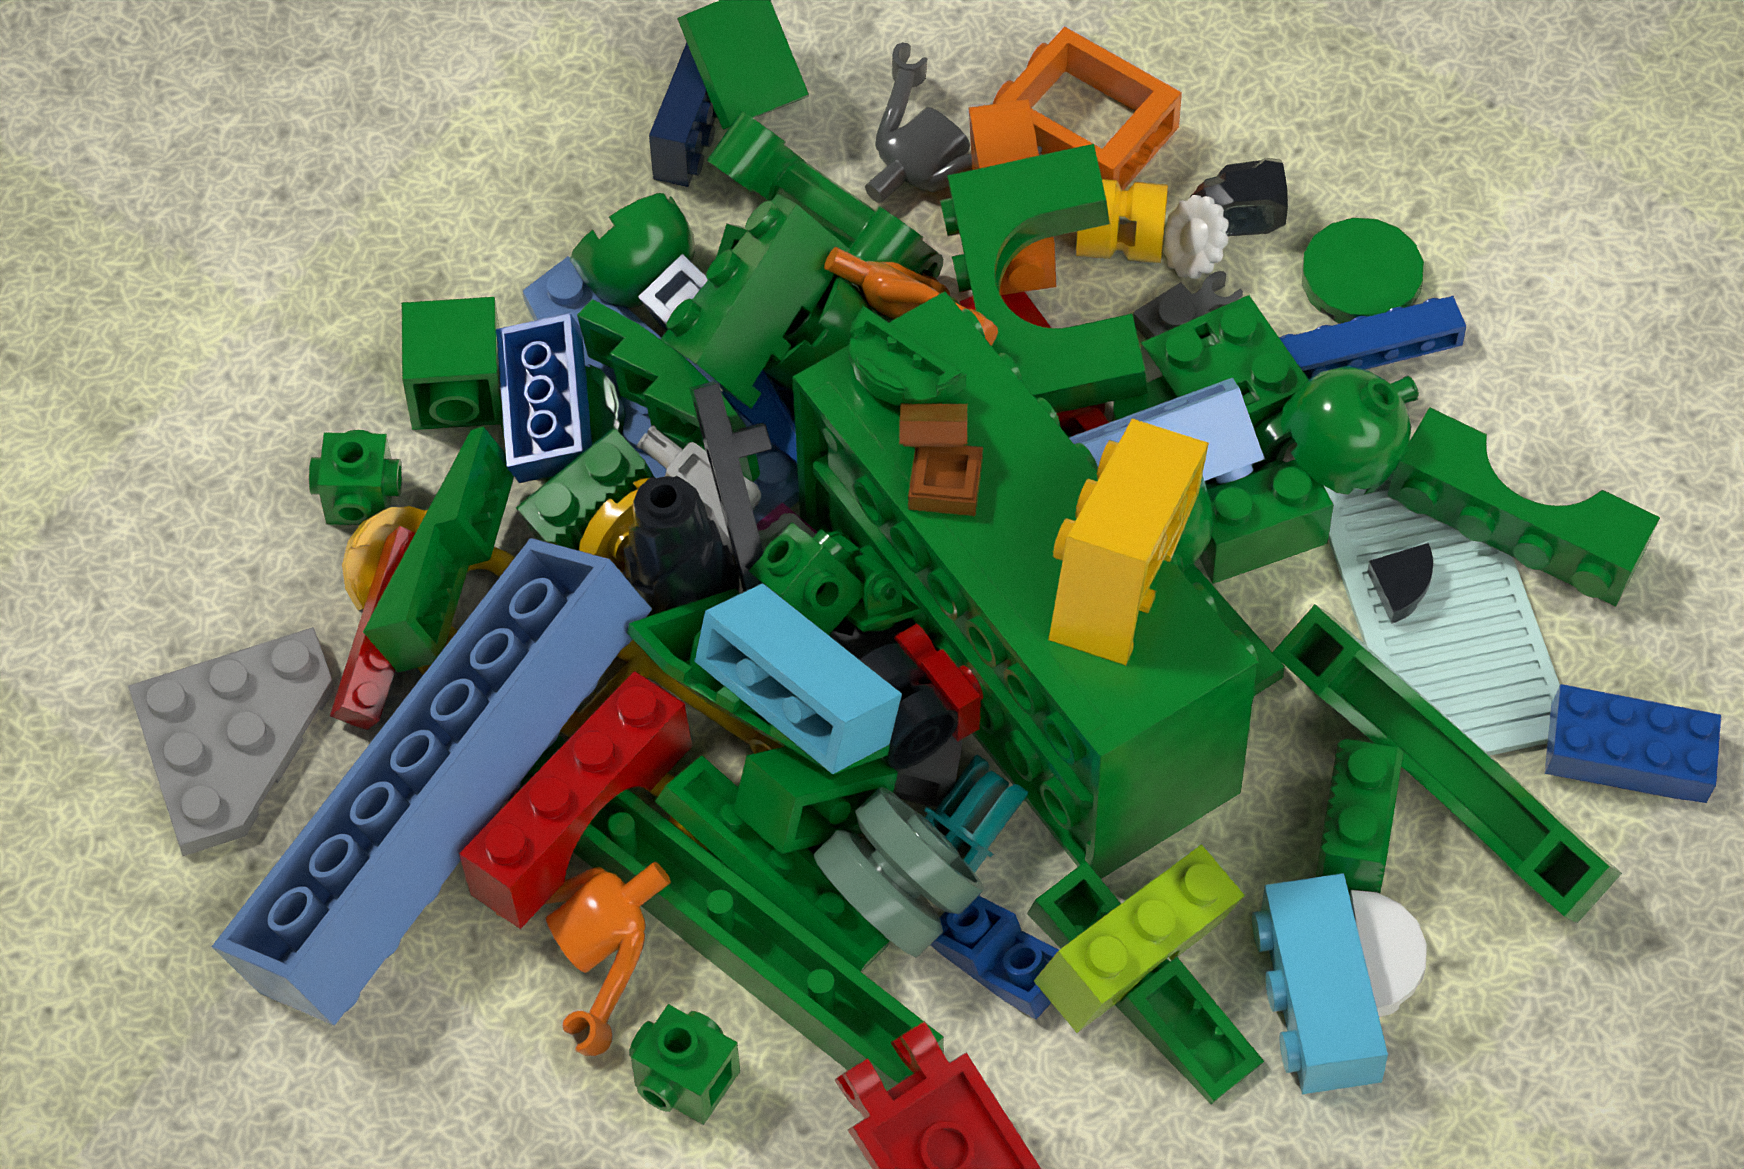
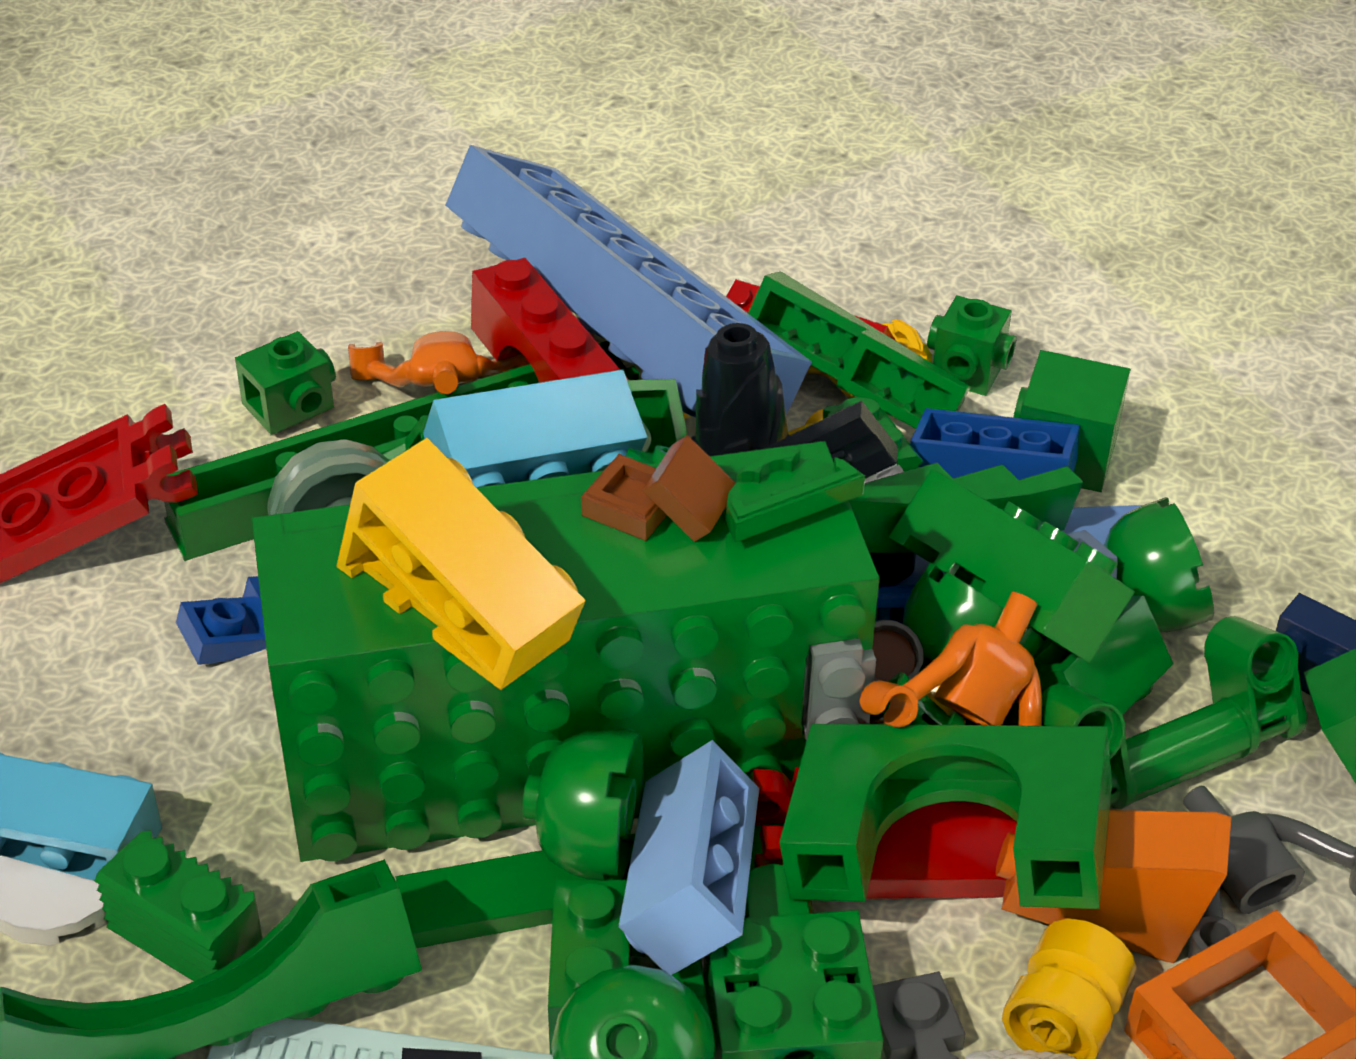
camera: 110 degrees right, 15 degrees down
(230, 732) = (758, 239): light grey plate -> none
(1138, 936) = (173, 700): lime arch -> none
(1163, 1005) = (129, 709): green slope -> none

